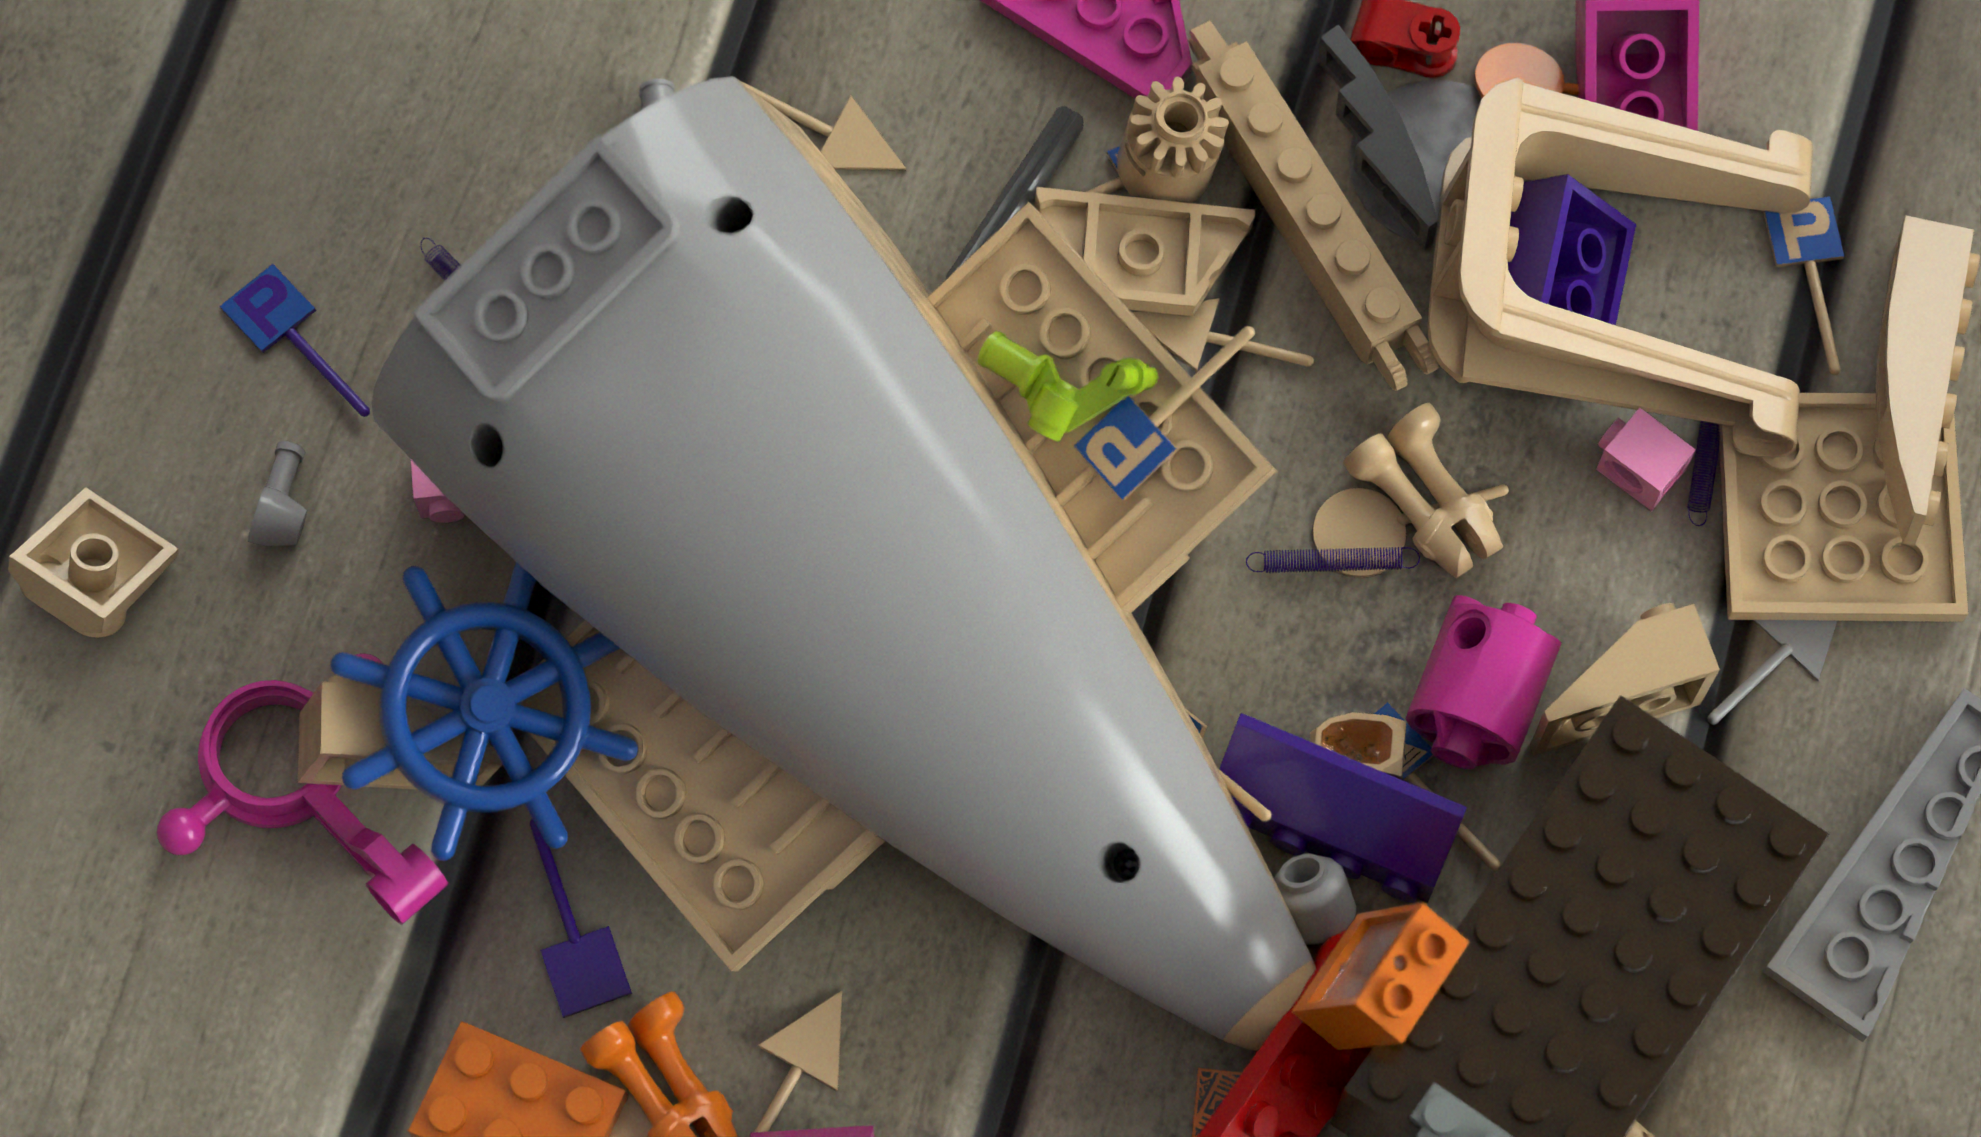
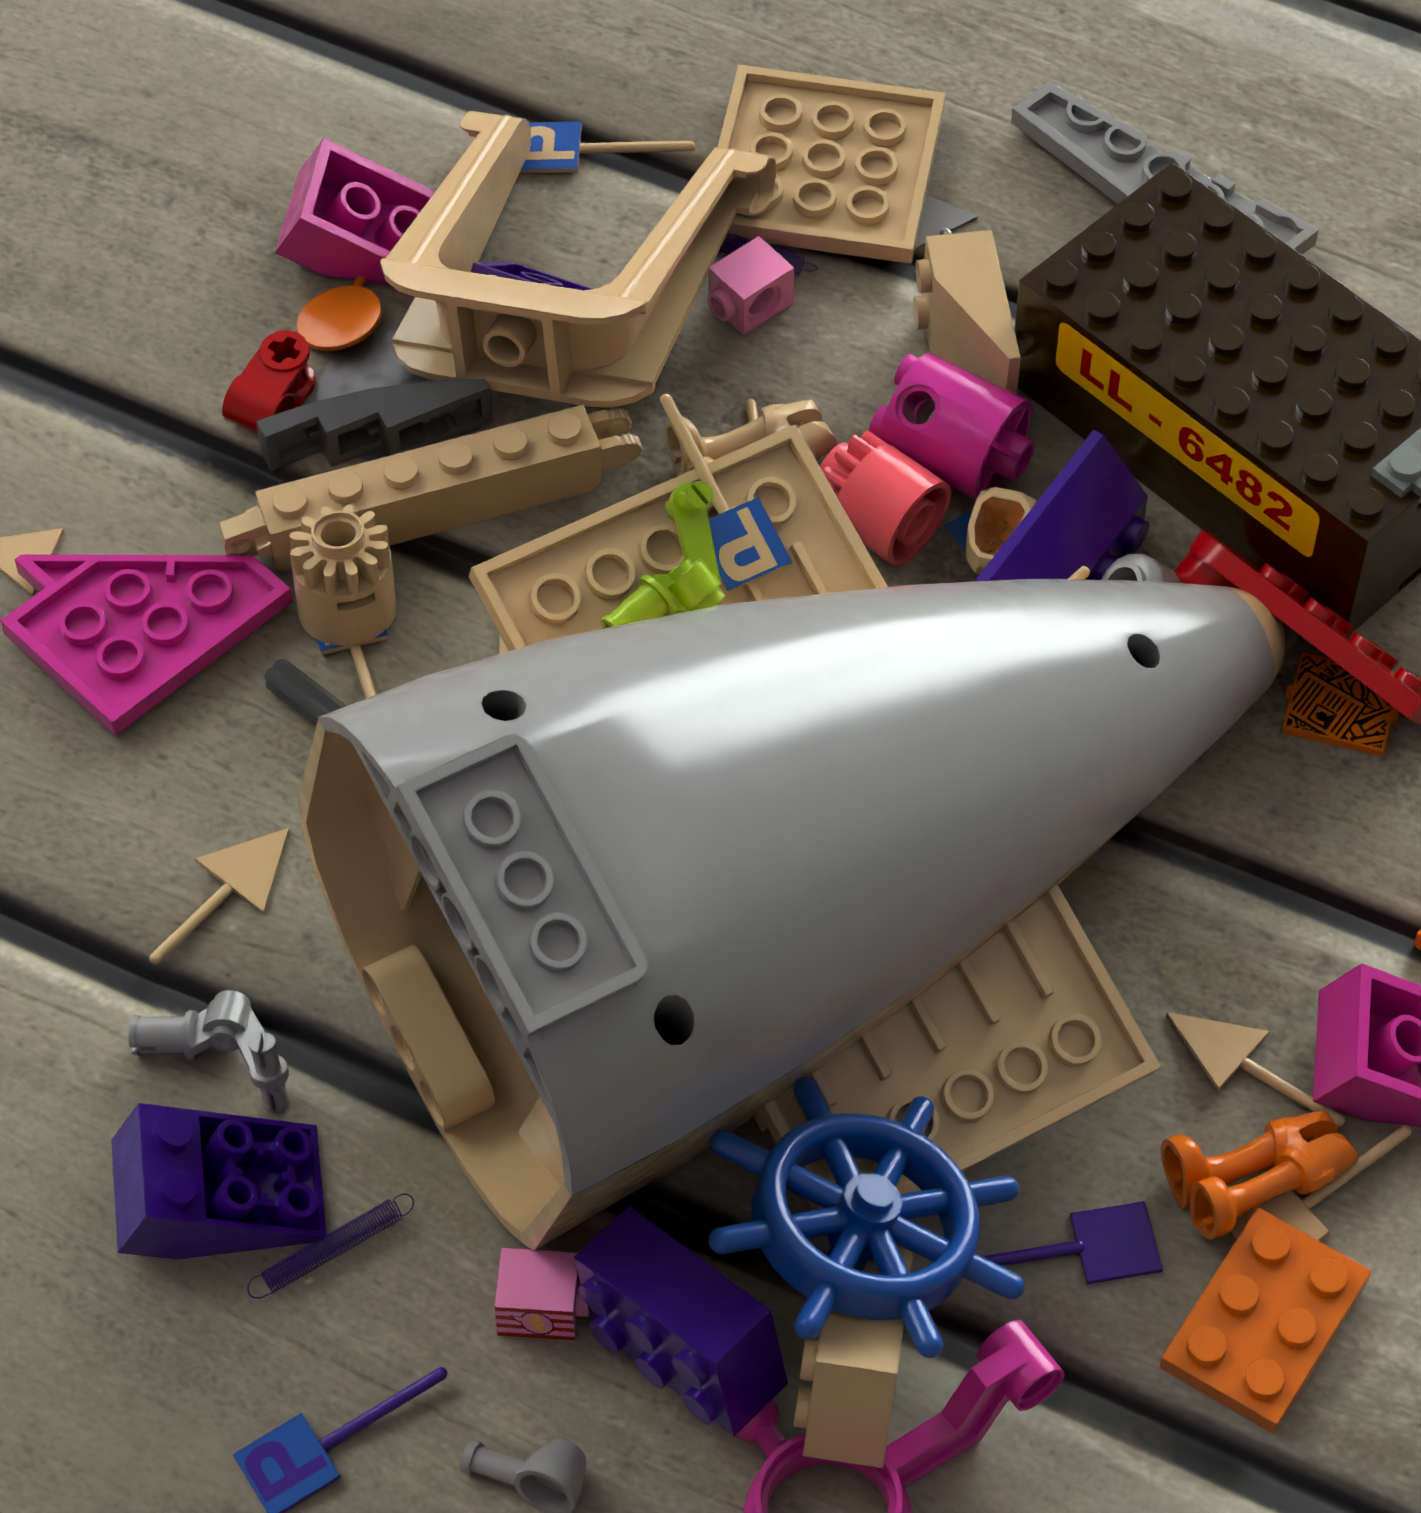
camera: 80 degrees left, 15 degrees down
(371, 607) = (680, 1321): none -> dark purple brick
(500, 161) = (214, 1183): none -> dark purple slope
(1145, 249) = (433, 623): tan wing -> none
(1380, 625) = (886, 496): none -> coral gear
(1386, 980) = (1266, 493): orange window -> none
(1917, 361) = (717, 70): tan slope -> none

